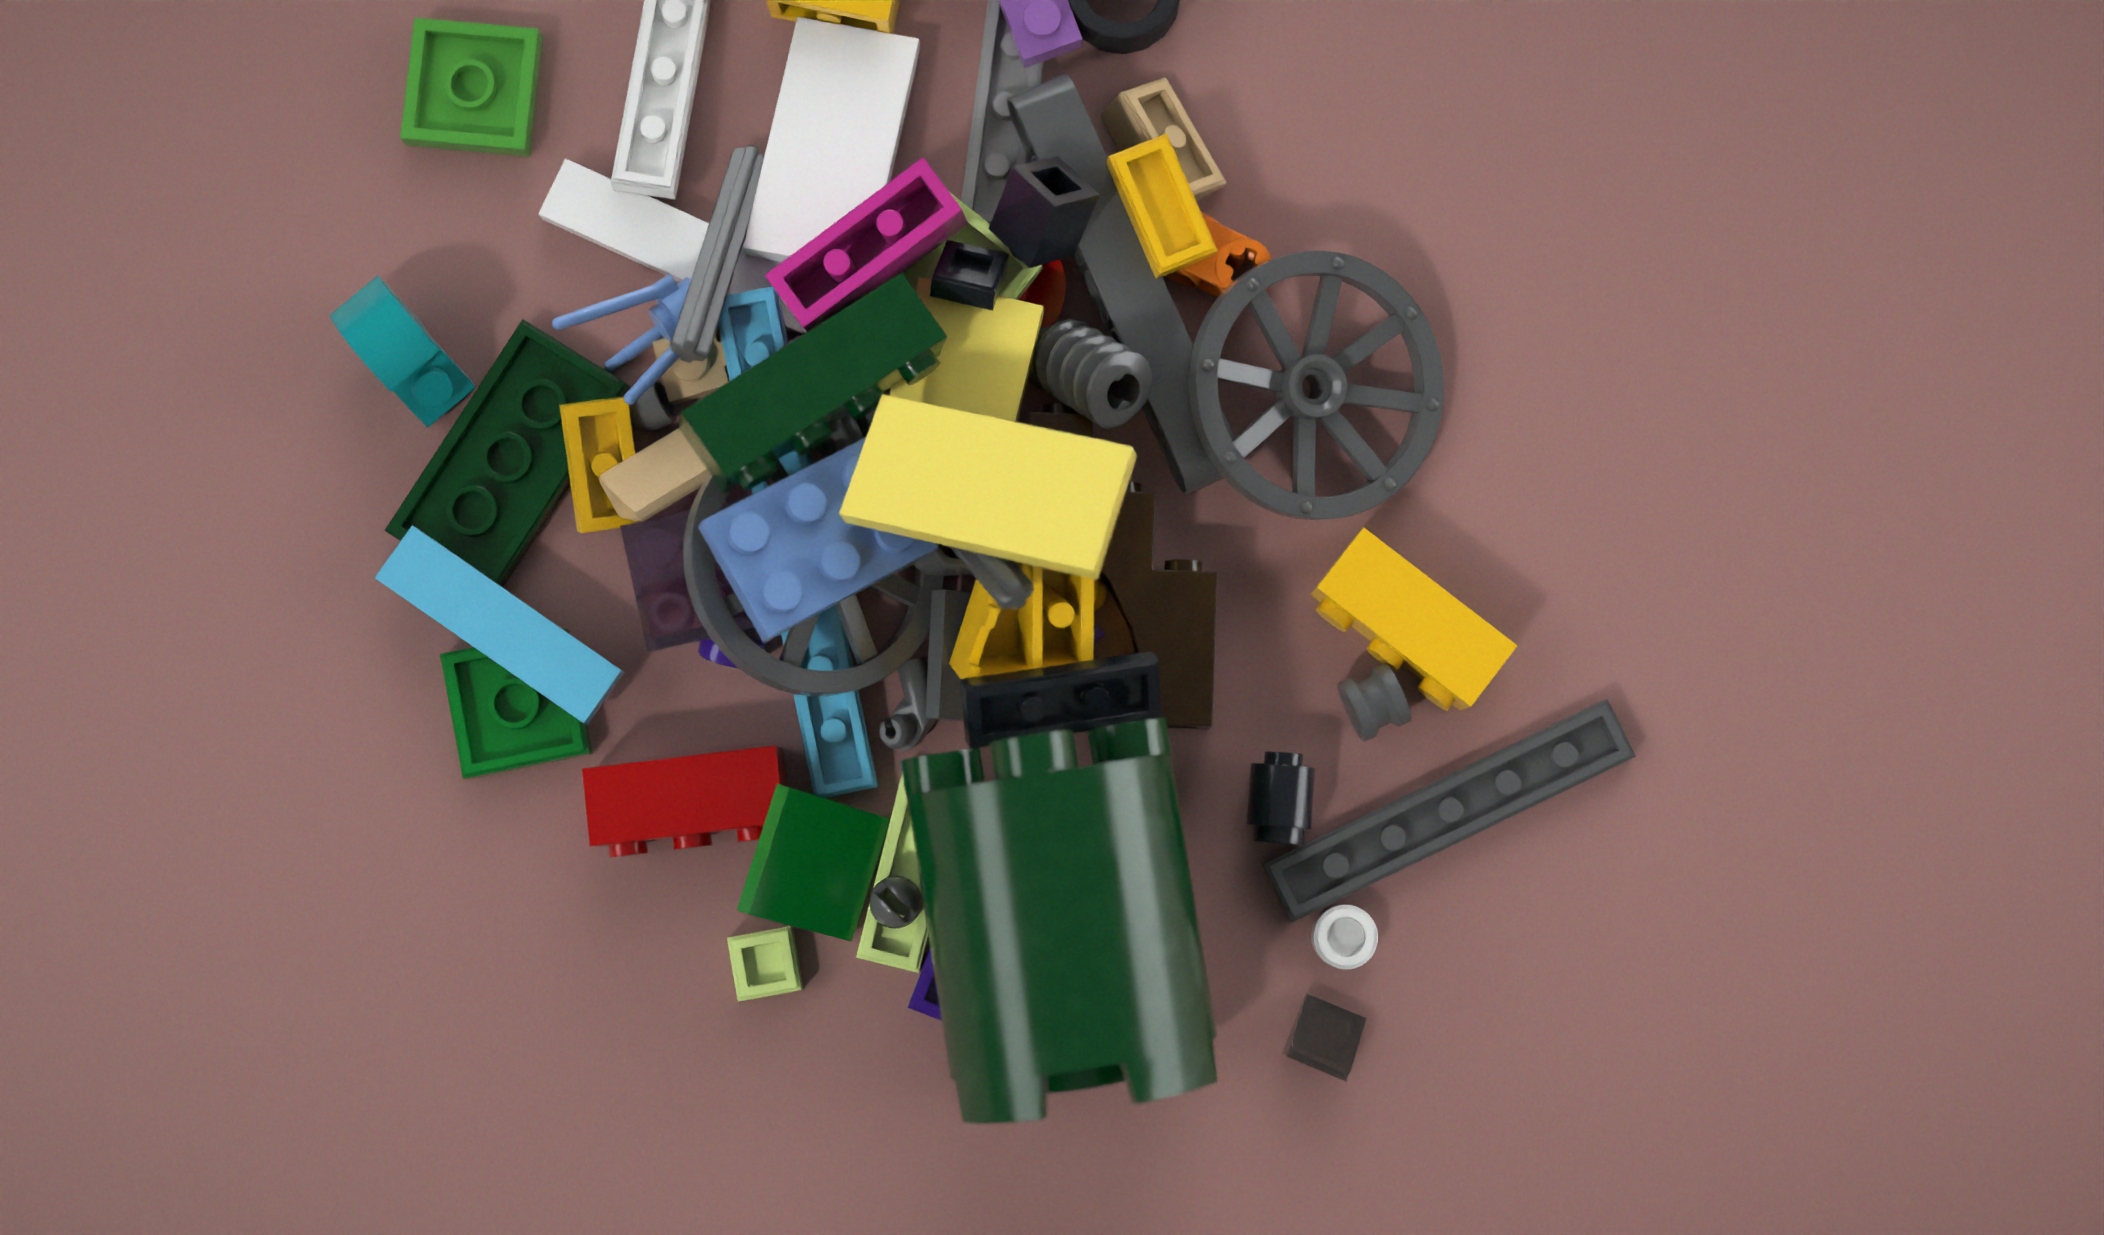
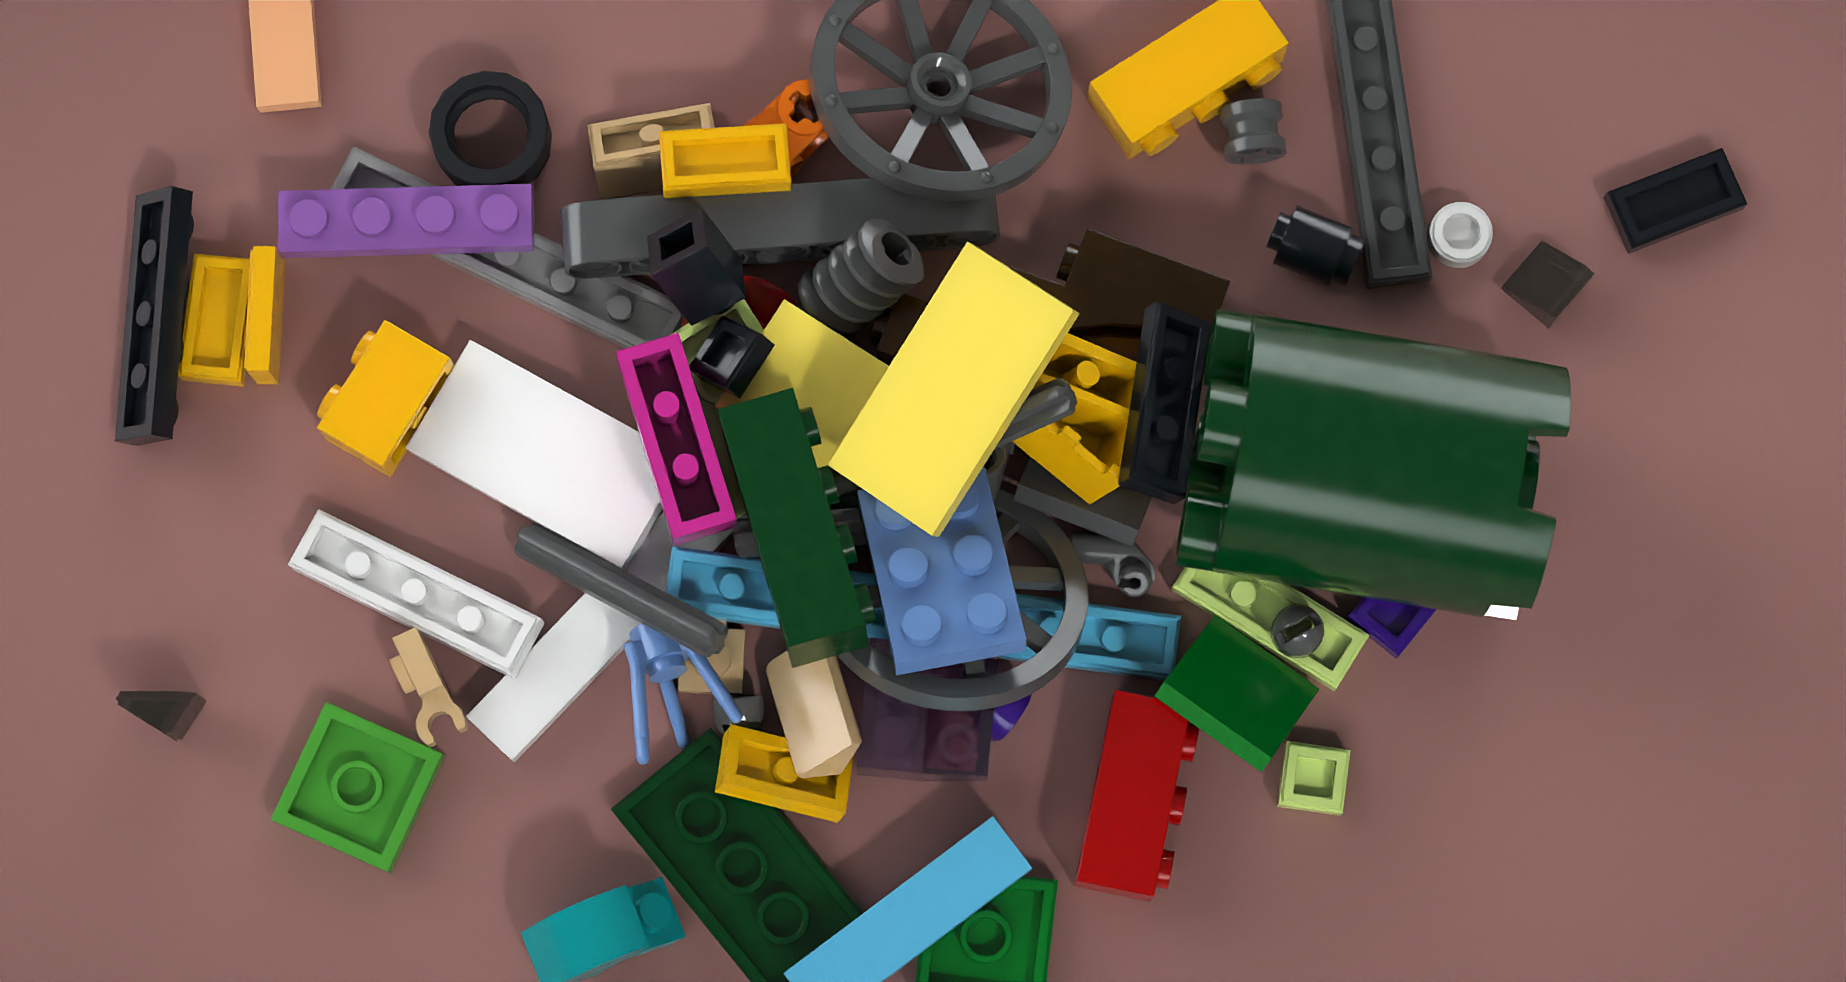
camera: 70 degrees left, 5 degrees down
(589, 106) = (419, 672): none -> tan plate
(1453, 1138) = (1675, 200): none -> black tile

